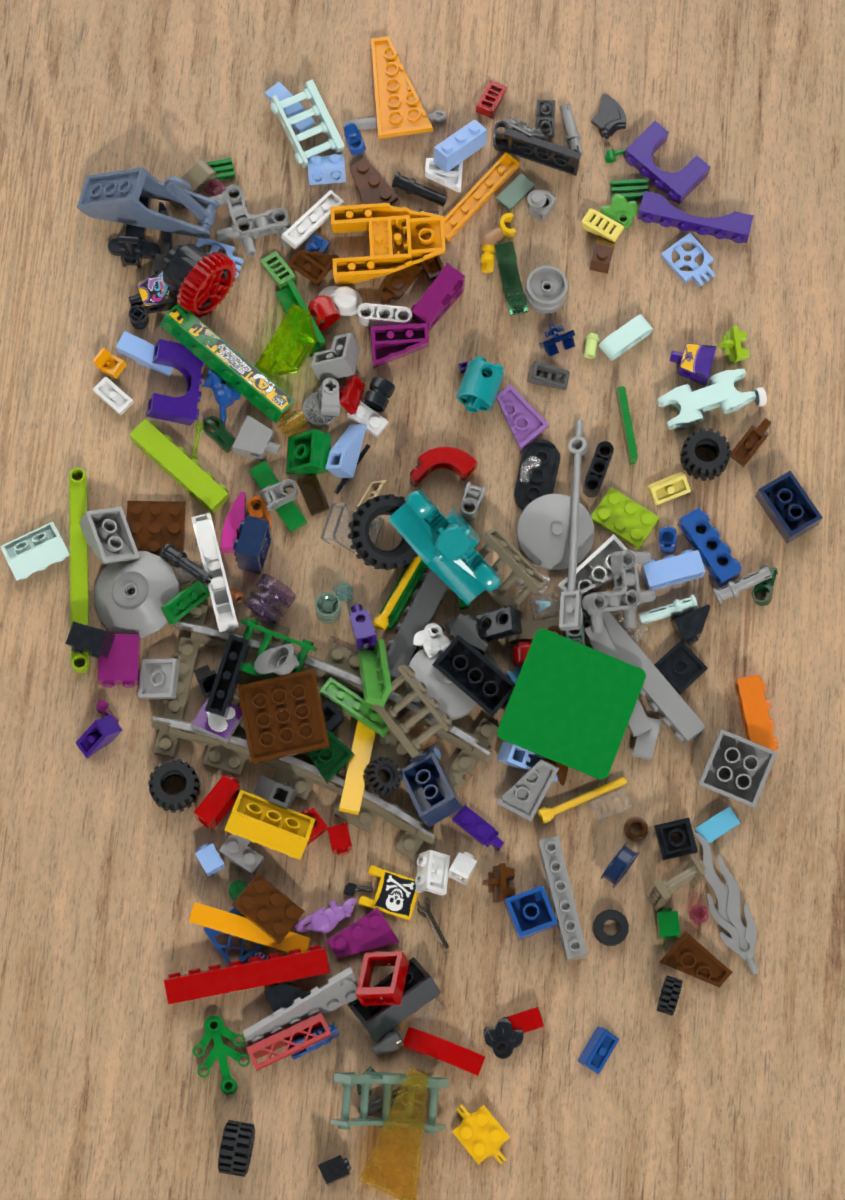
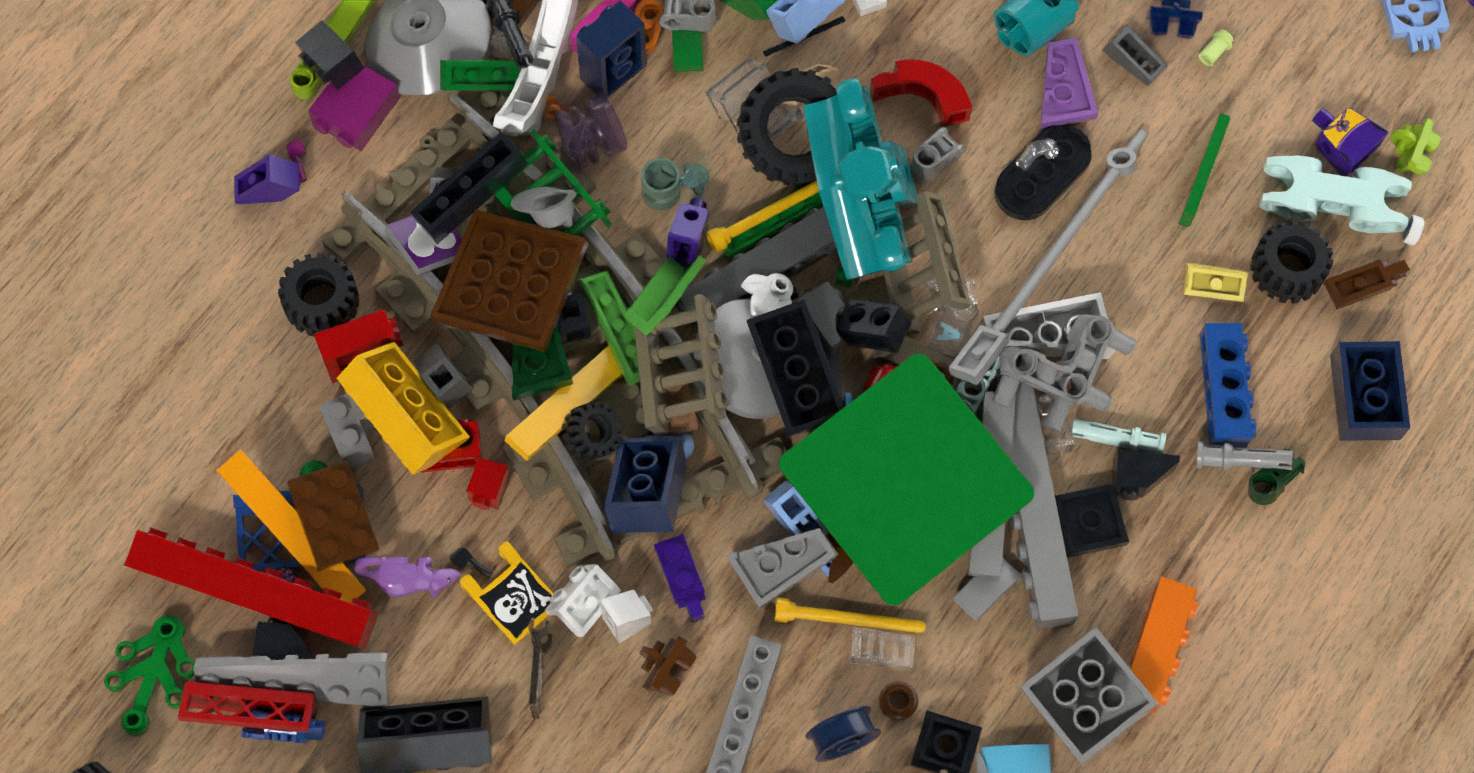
camera: 30 degrees right, 5 degrees down
(159, 679) = (387, 153): light grey plate -> none
(209, 859) = (303, 414): light blue brick -> none
(312, 494) = (732, 39): dark brown tile -> none
(363, 935) = (439, 627): magenta wing -> none
(382, 995) = (415, 721): red window -> none
(530, 912) = (680, 727): blue brick -> none
(545, 532) = (1010, 243): light grey dish -> none
(598, 461) = (1126, 216): black beam -> none
(624, 518) = (1130, 287): lime plate -> none
(625, 337) = (1269, 61): light aqua beam -> none
(667, 539) = (1173, 345): blue hair -> none
(673, 570) = (1157, 387): light blue brick -> none

